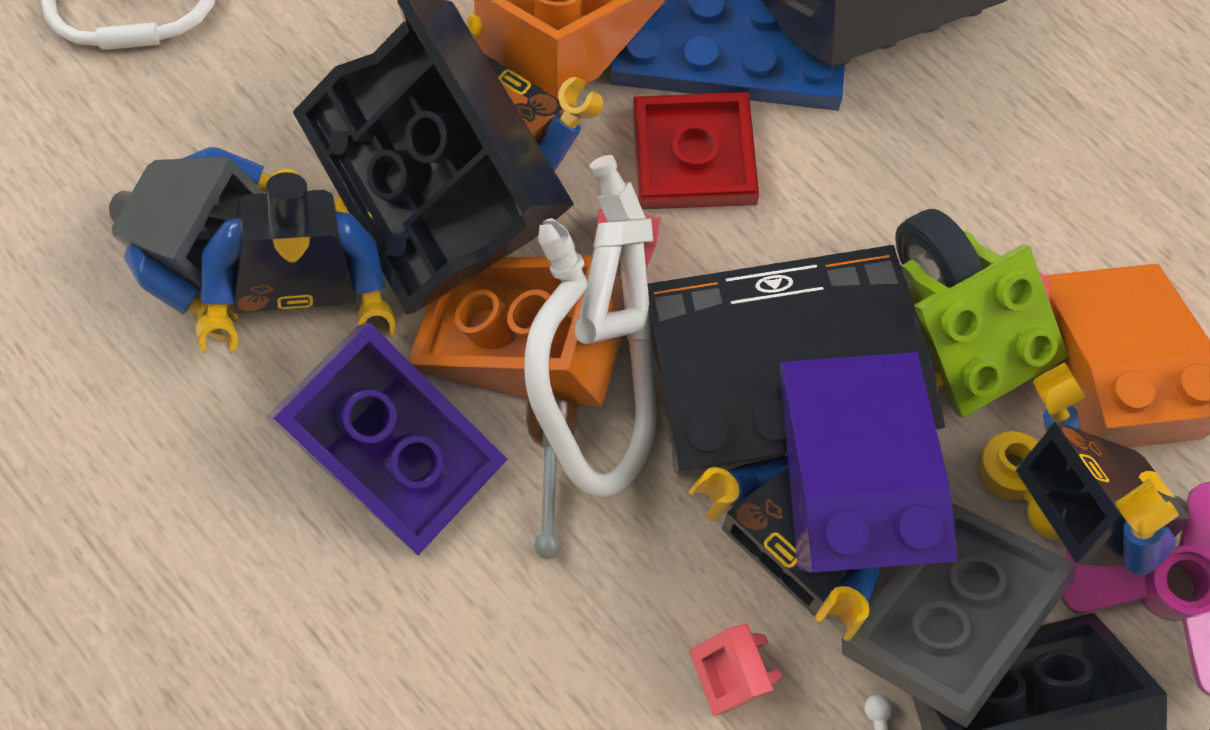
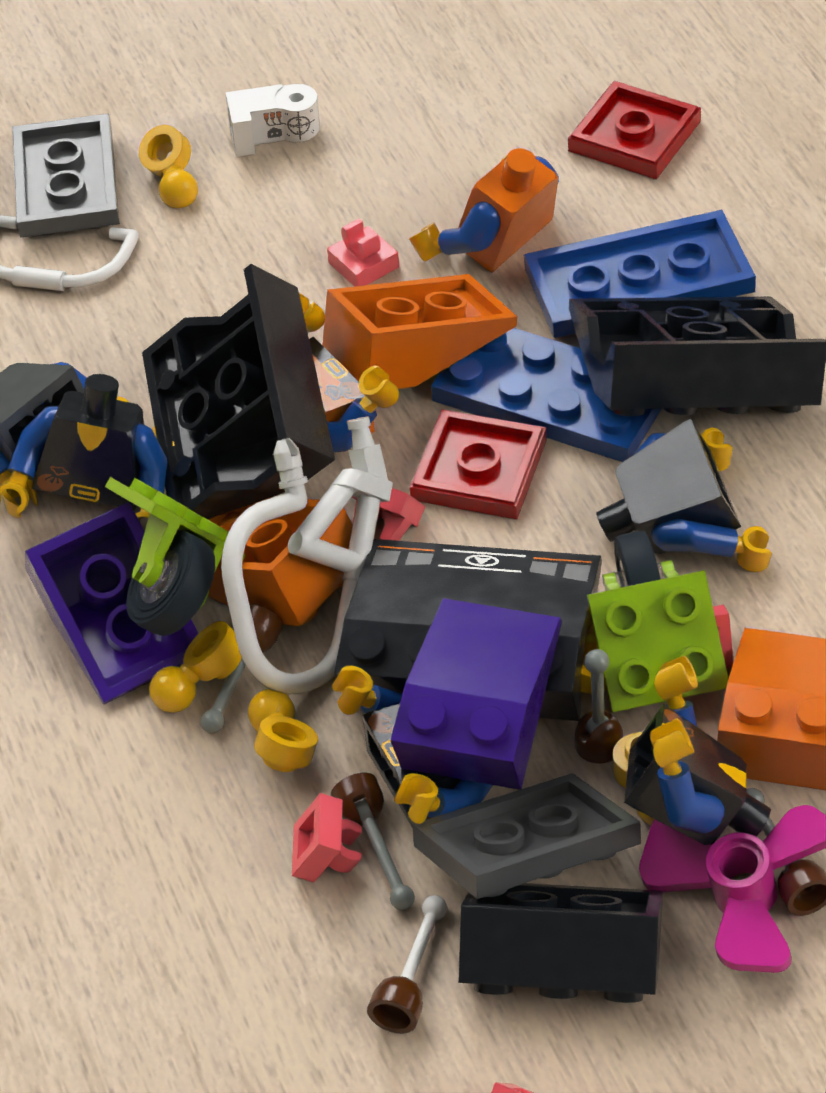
camera: 25 degrees right, 20 degrees down
(459, 403) = (173, 560): none -> plate
(519, 471) = (208, 656): none -> yellow plate
(642, 552) = (280, 738): none -> yellow plate
(758, 606) = (363, 805): none -> hinge
(929, 147) = (681, 500): none -> torso
(963, 436) = (600, 724): none -> hinge

